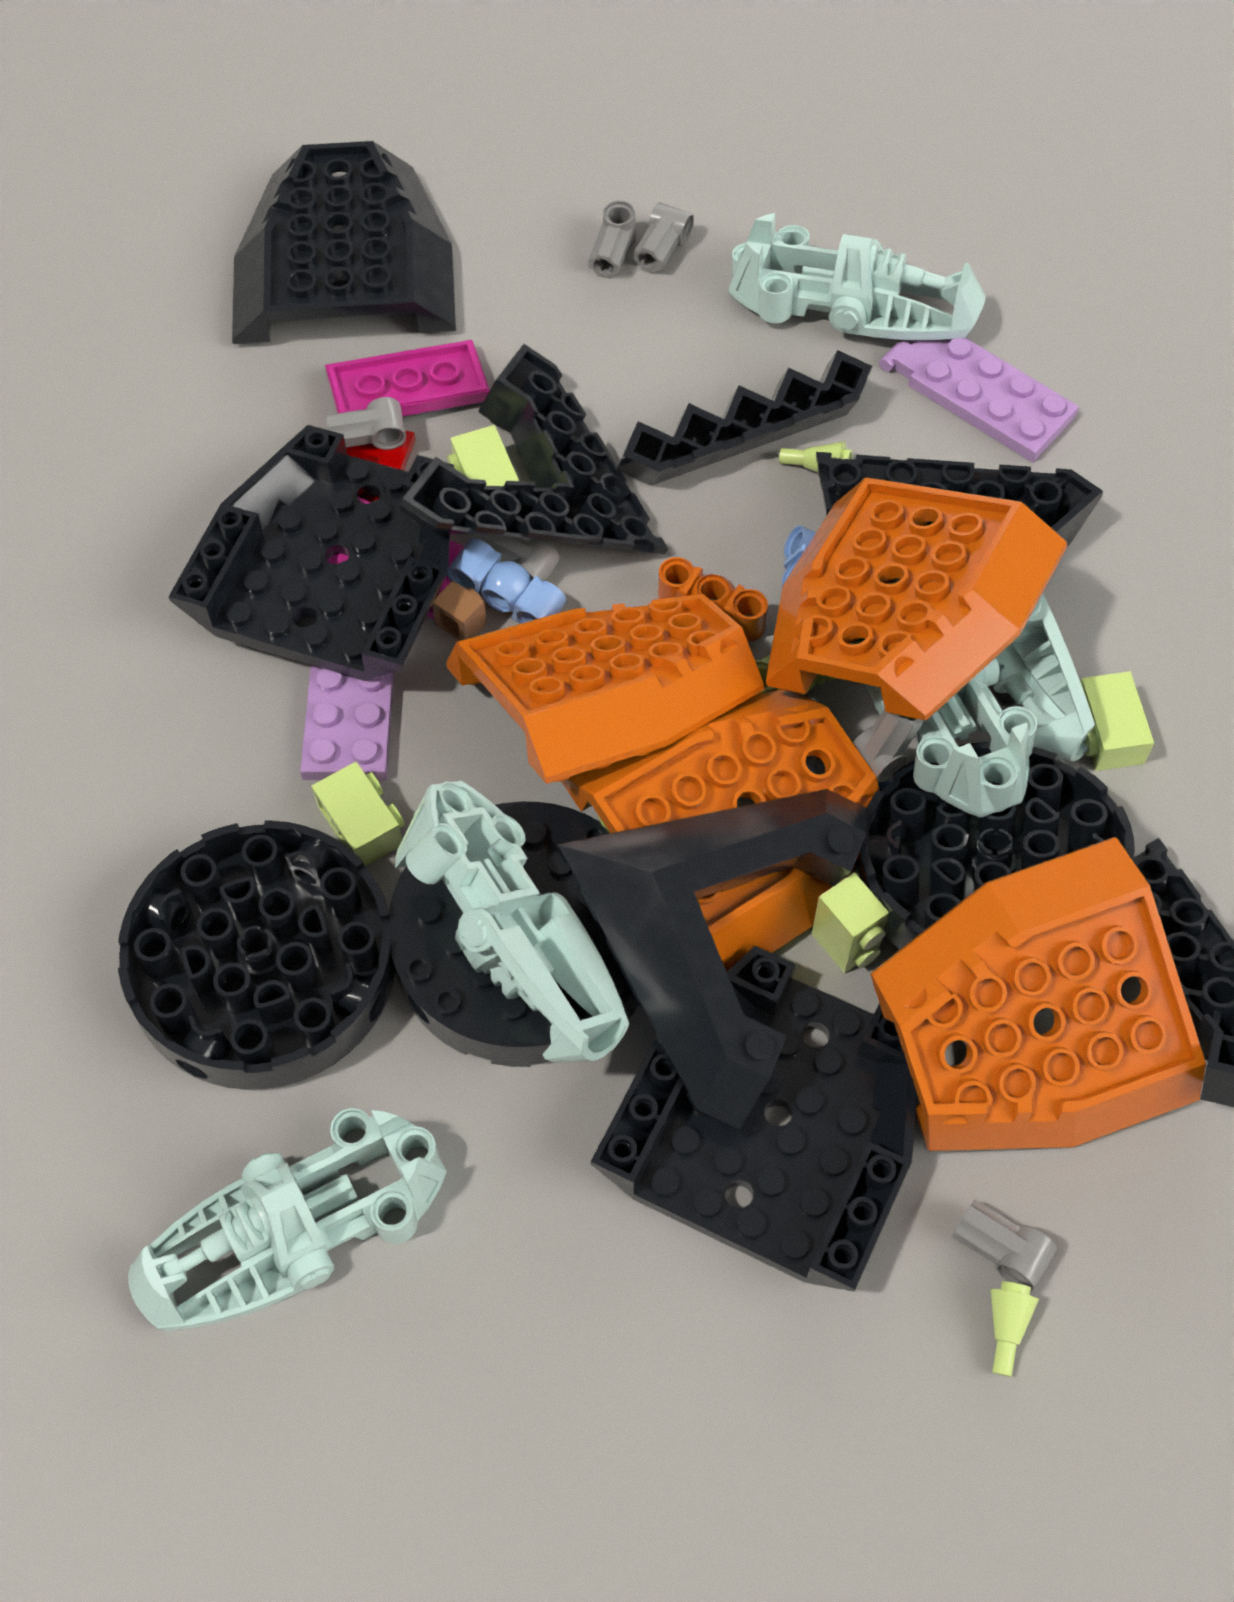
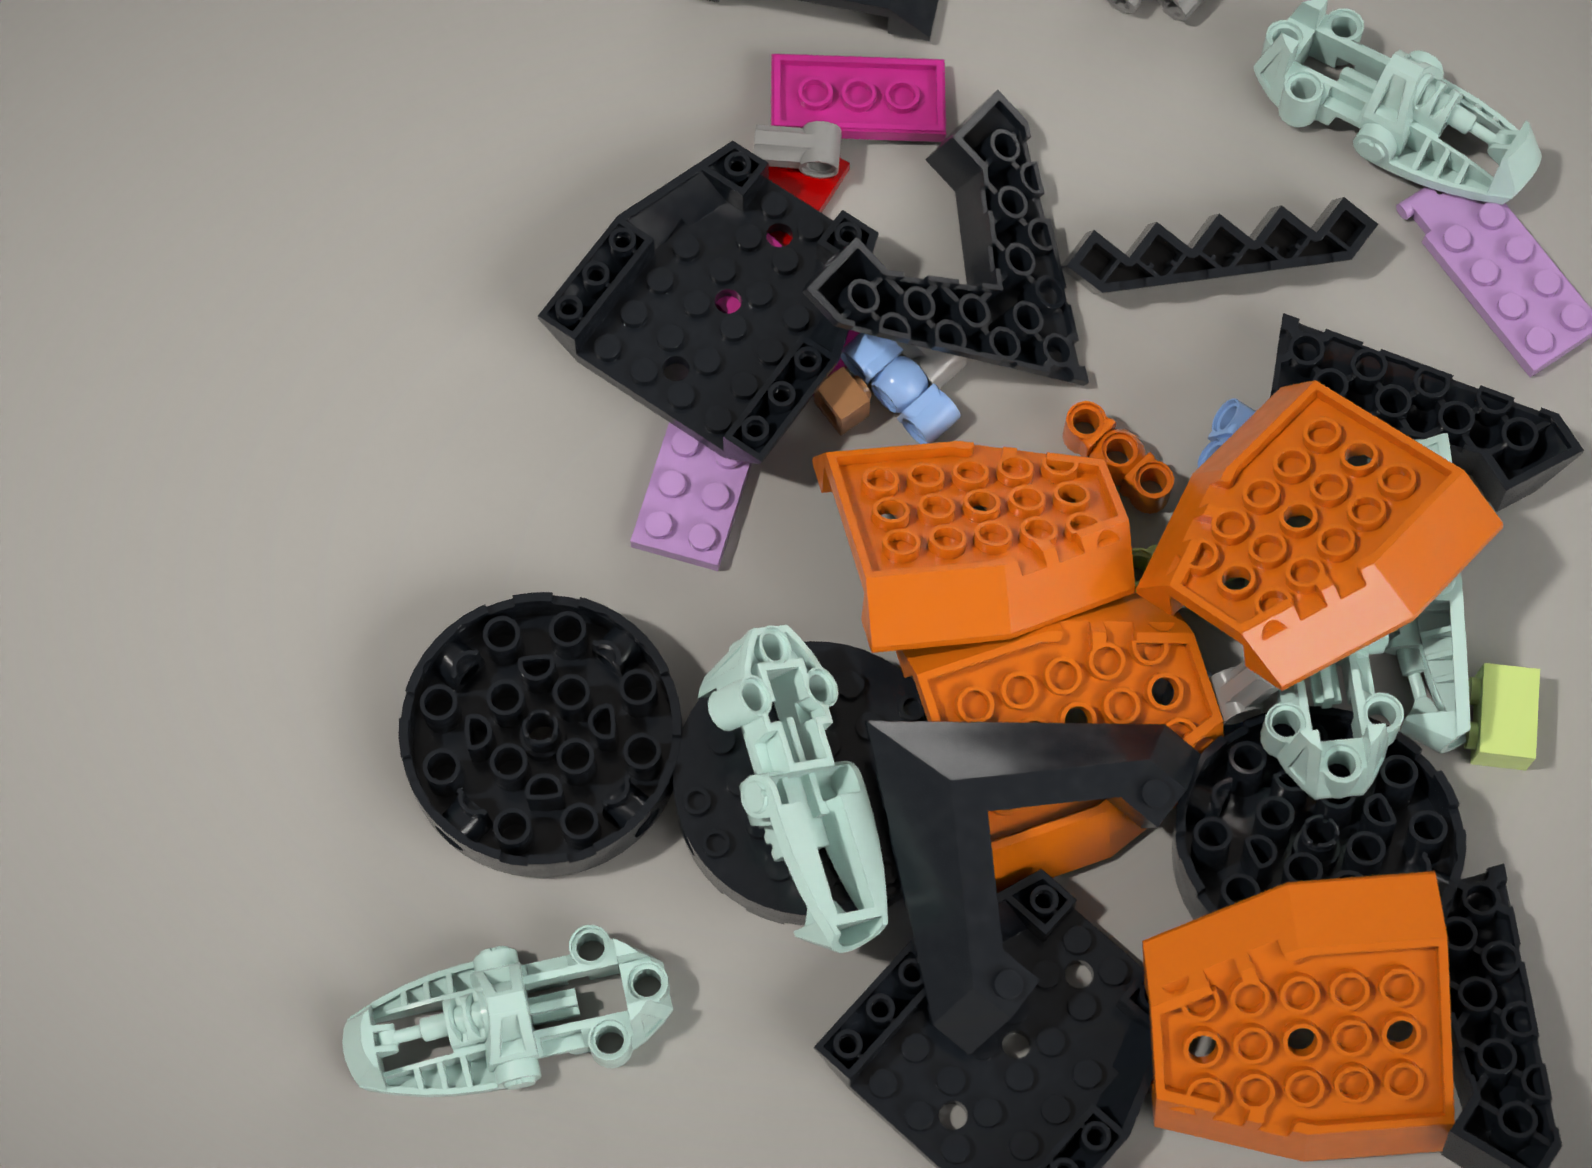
camera: 15 degrees right, 10 degrees up
(358, 813) = (678, 606): yellowish green brick -> none
(482, 456) = (913, 231): yellowish green brick -> none
(808, 456) = (1308, 313): yellowish green cone -> none
(850, 923) = (1147, 871): yellowish green brick -> none

